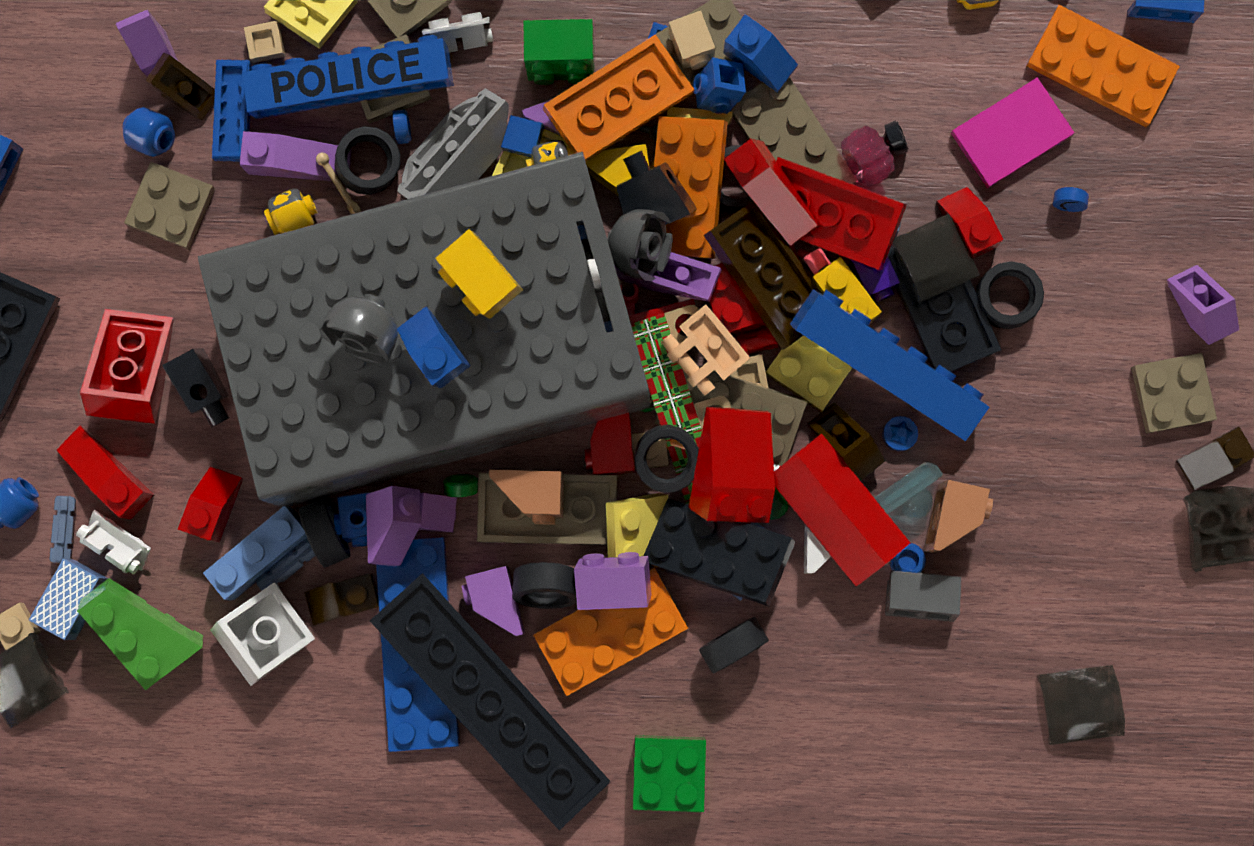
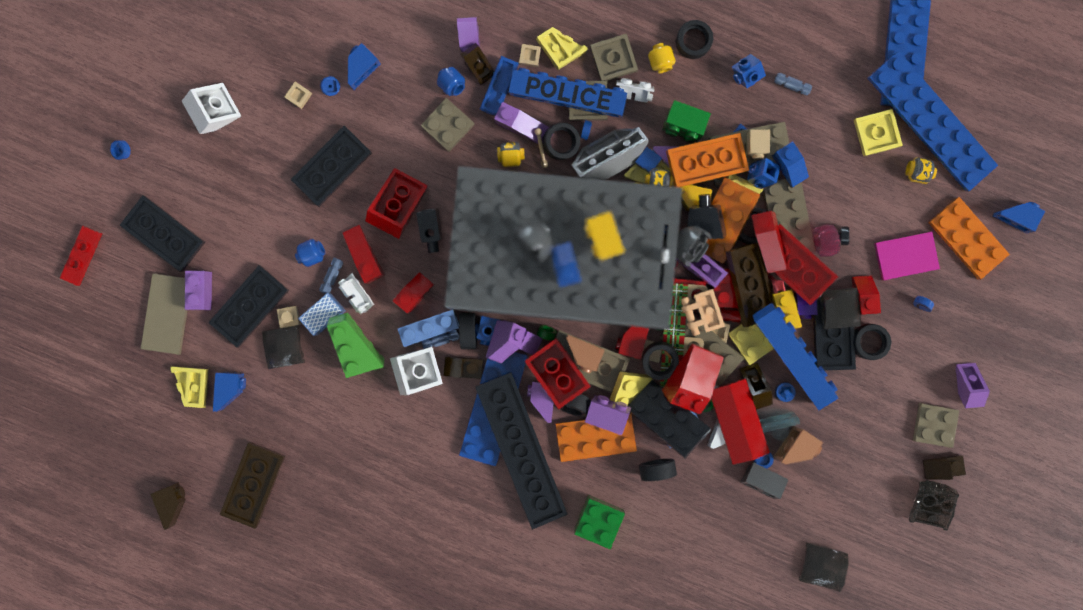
camera: 15 degrees right, 5 degrees up
(499, 543) = (557, 373): none -> red slope

